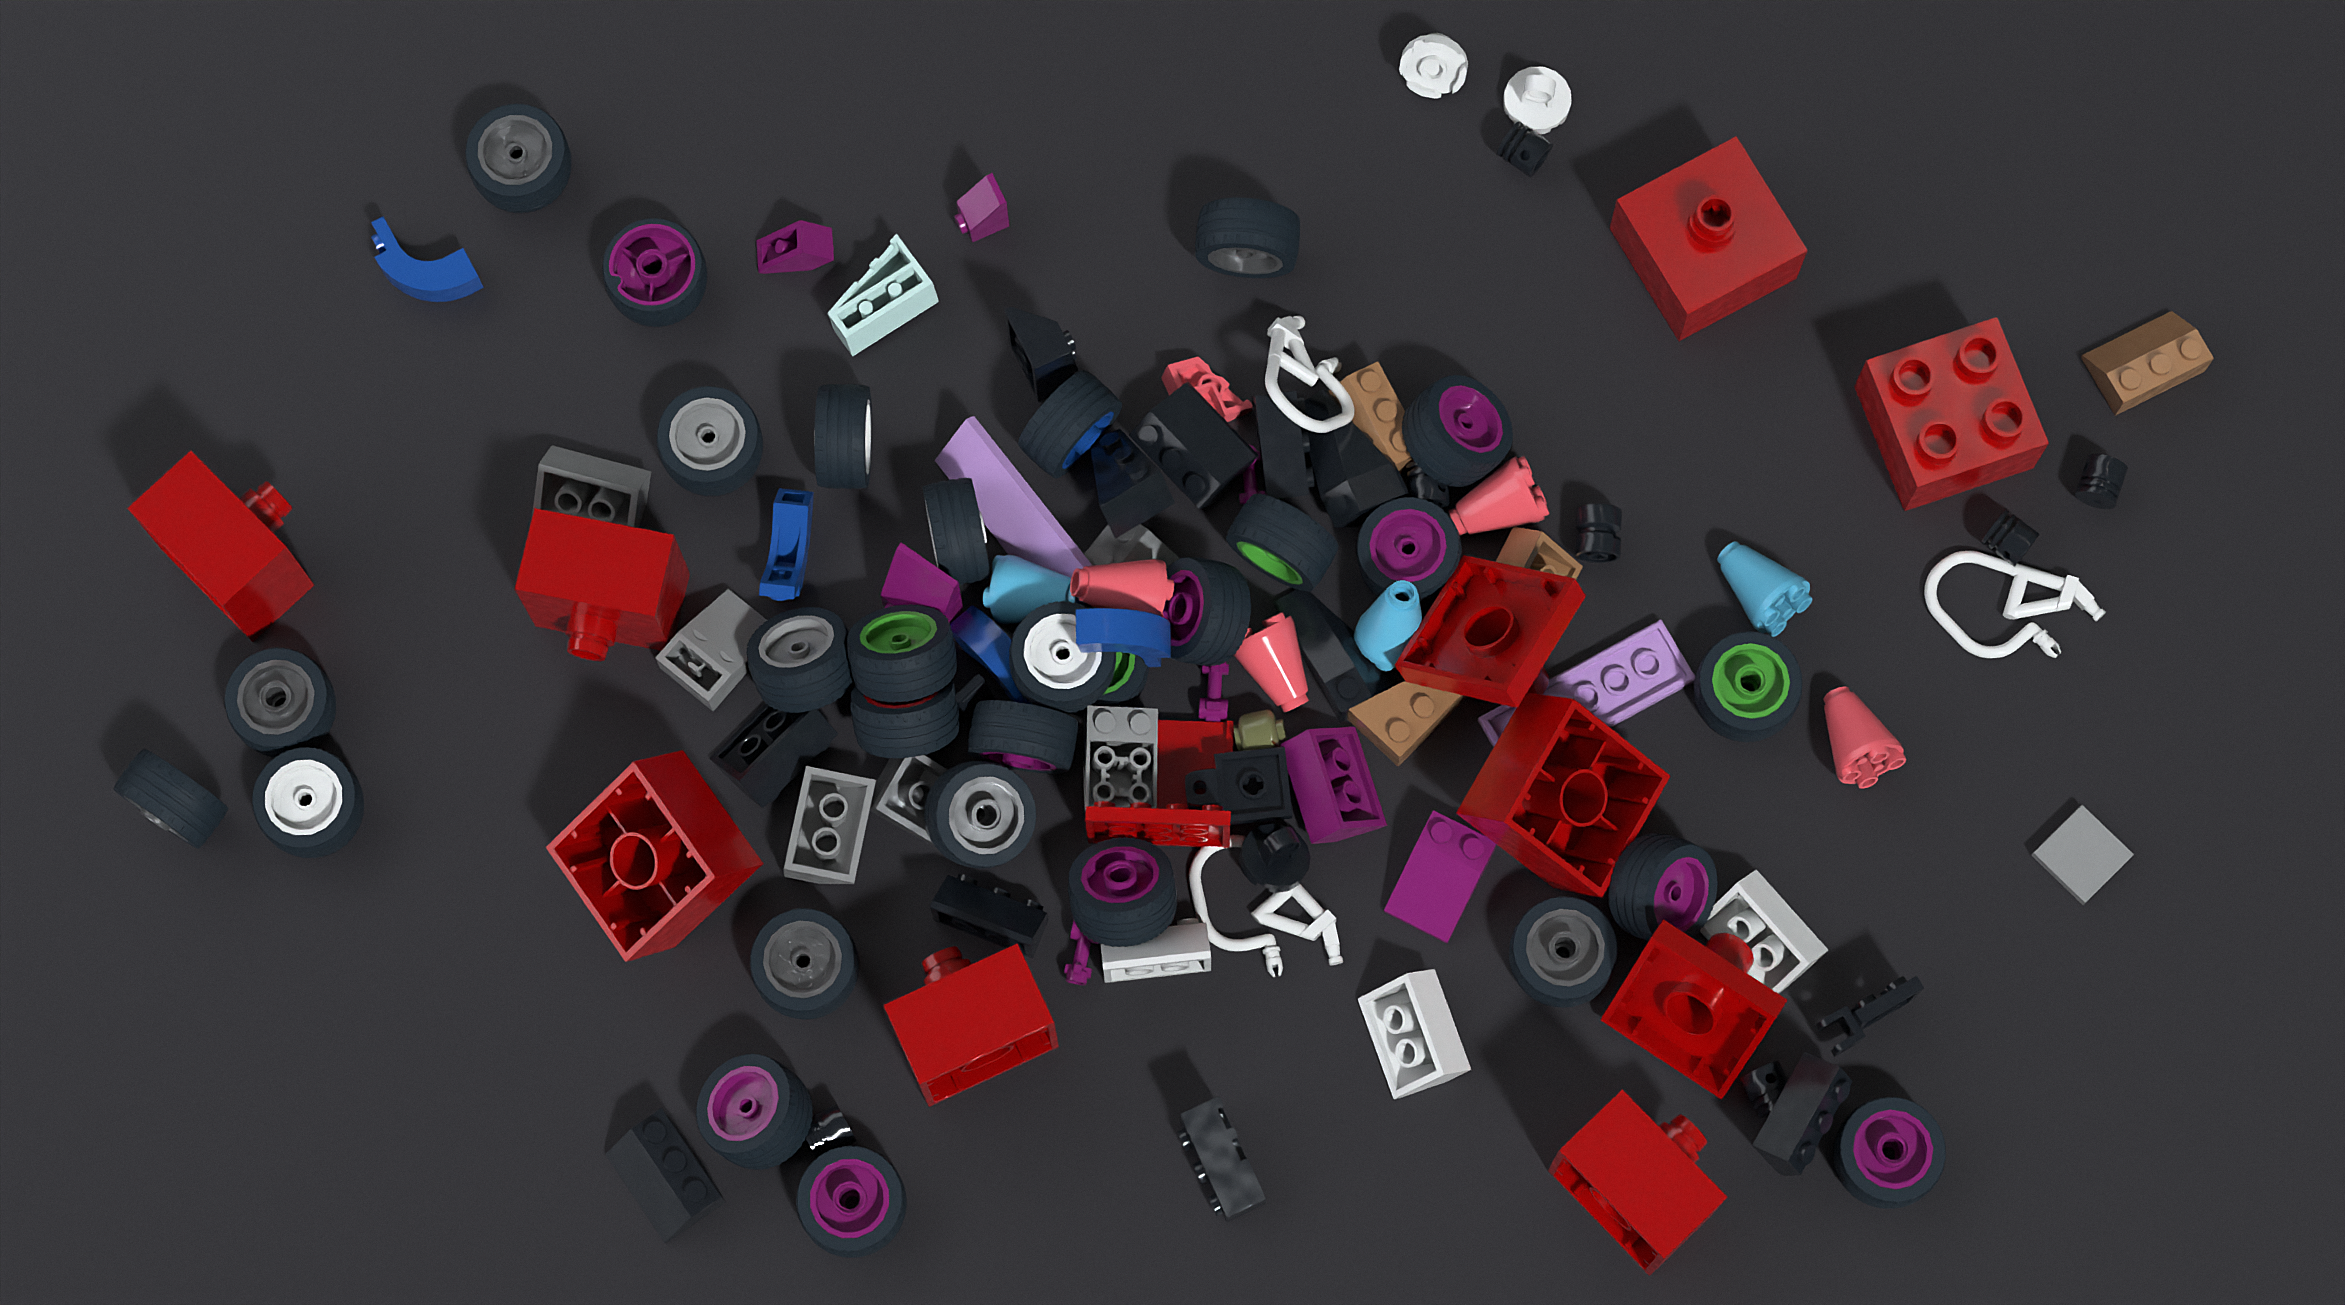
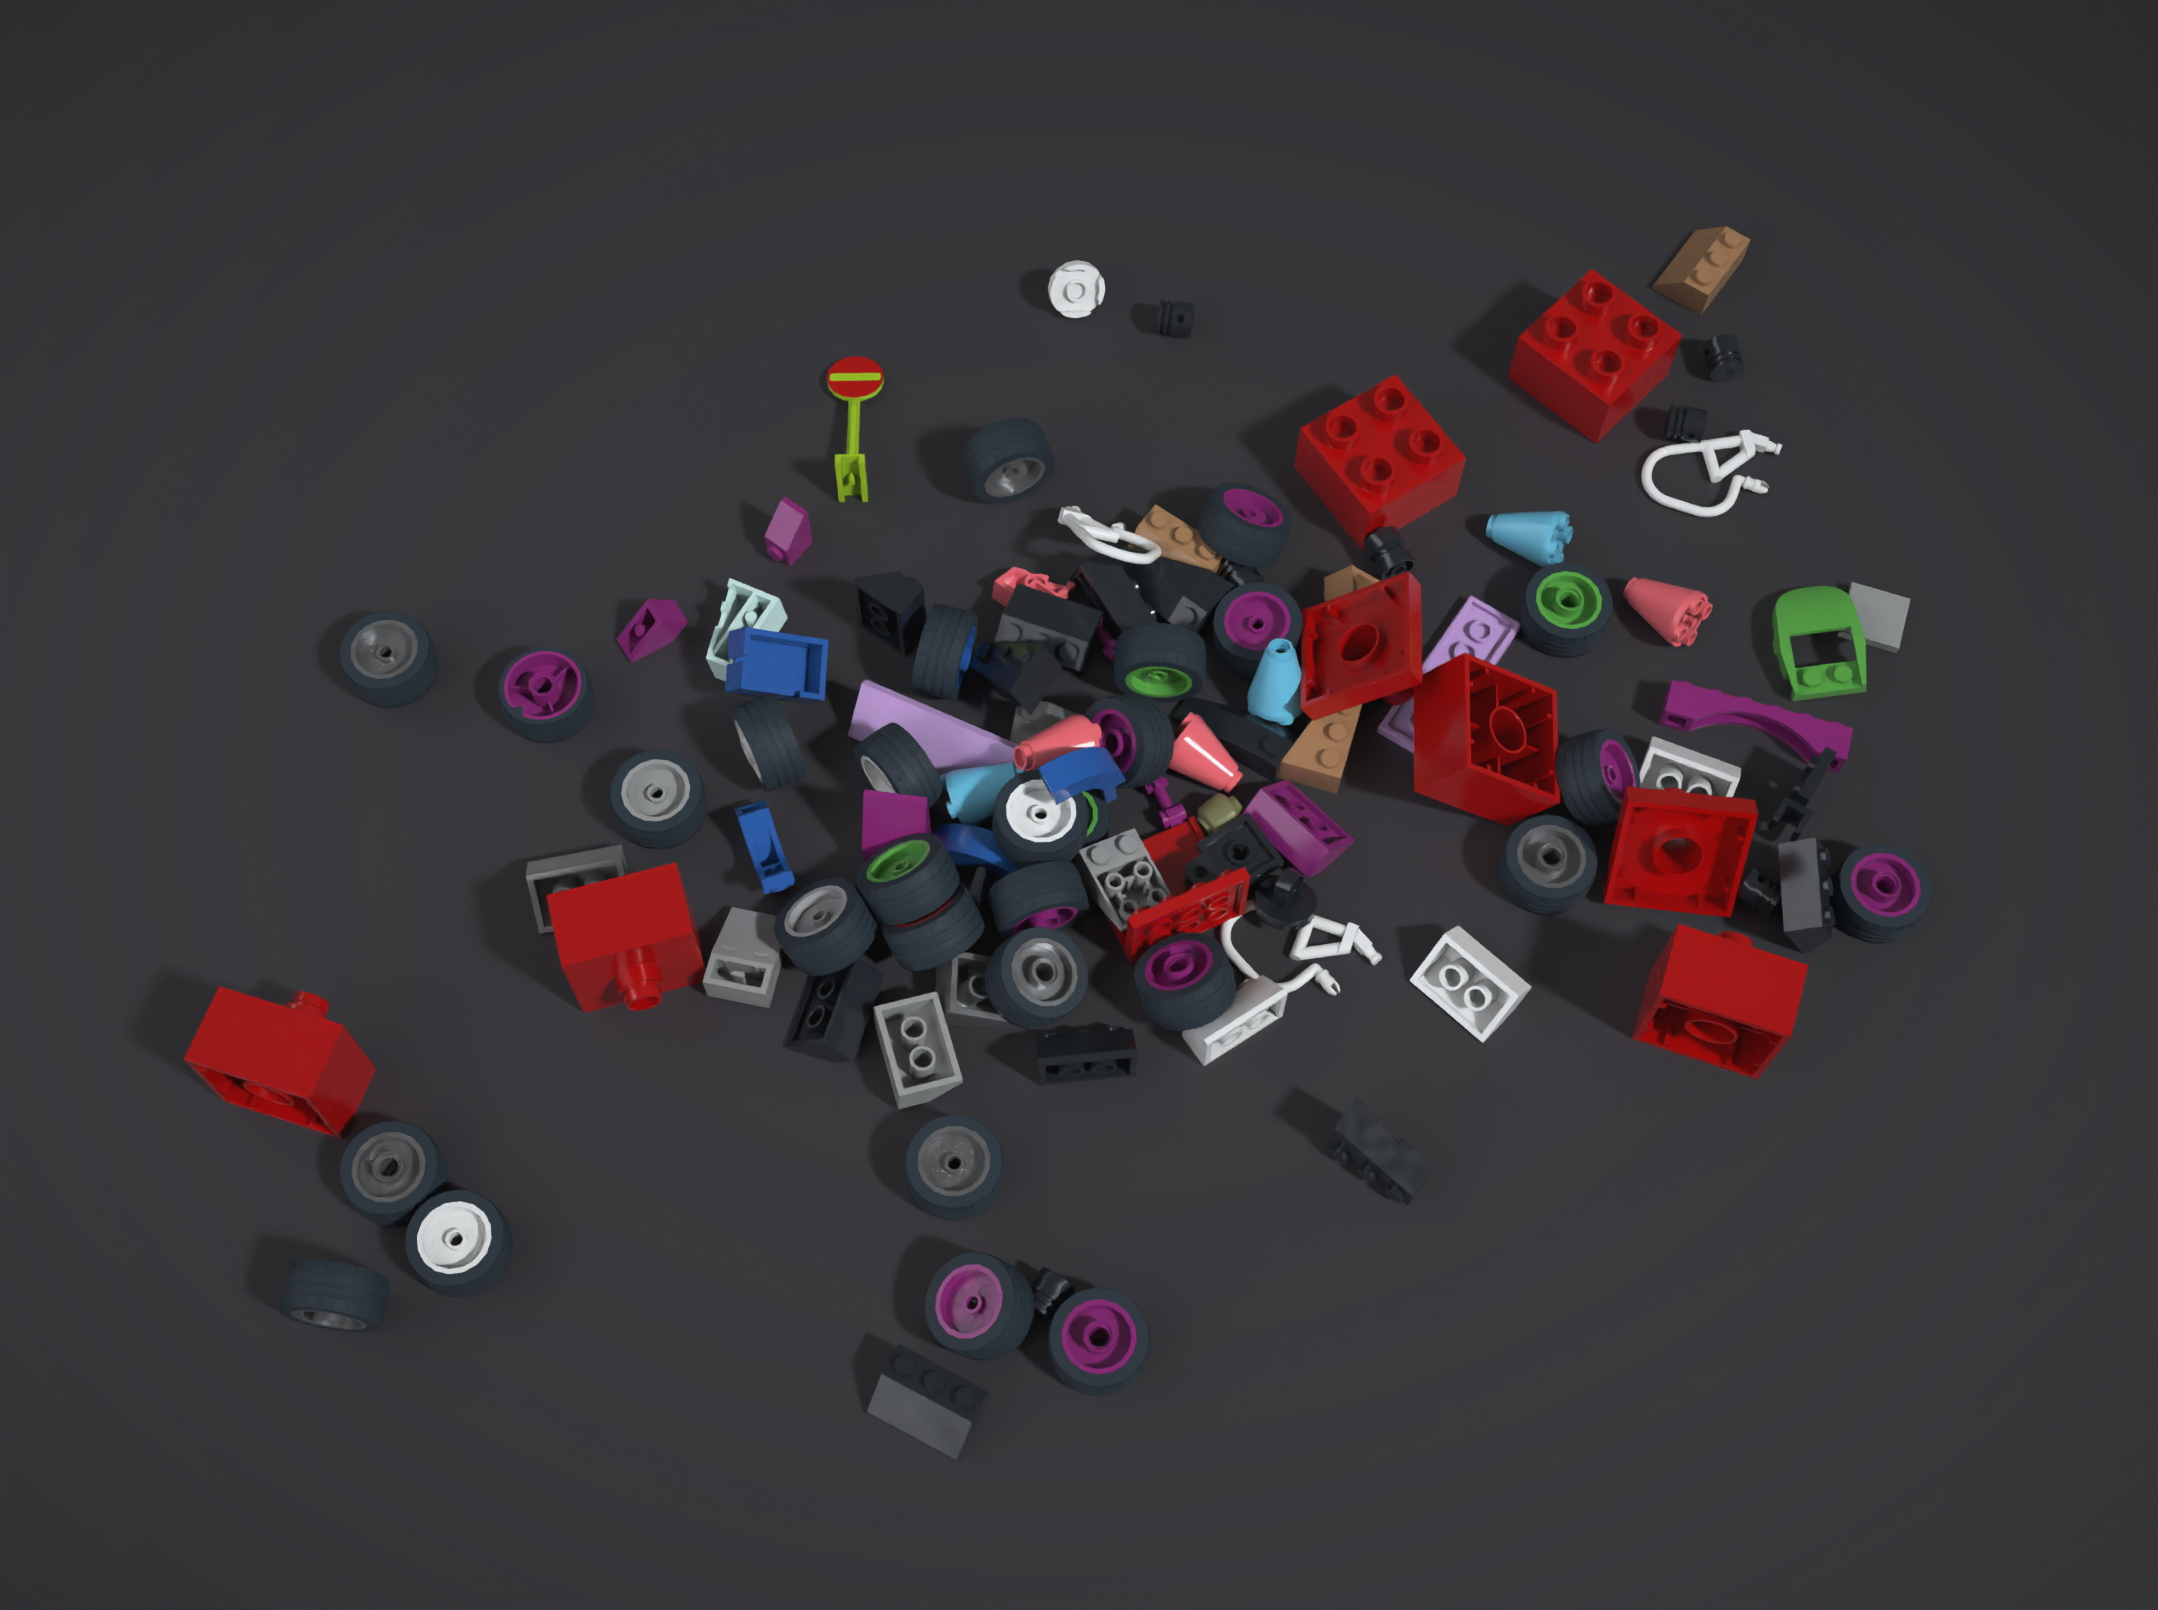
camera: 30 degrees left, 10 degrees down
(425, 280) = (353, 786): blue arch -> none
(654, 855) = (786, 1134): red brick -> none
(894, 354) = (777, 664): none -> blue piece
(971, 1021) = (1123, 1138): red brick -> none
(1077, 972) = (1179, 1066): magenta bar -> none
(1145, 60) = (853, 381): none -> lime piece
(1440, 876) = (1420, 855): magenta slope -> none
(1501, 501) = (1307, 559): coral cone -> none
(1537, 99) = (1162, 280): white tile -> none
(1643, 425) = (1379, 460): none -> red brick
(1707, 238) = (1347, 315): red brick -> none
(1821, 860) = (1694, 707): none -> magenta arch
(2015, 819) = (1812, 612): none -> bright green slope

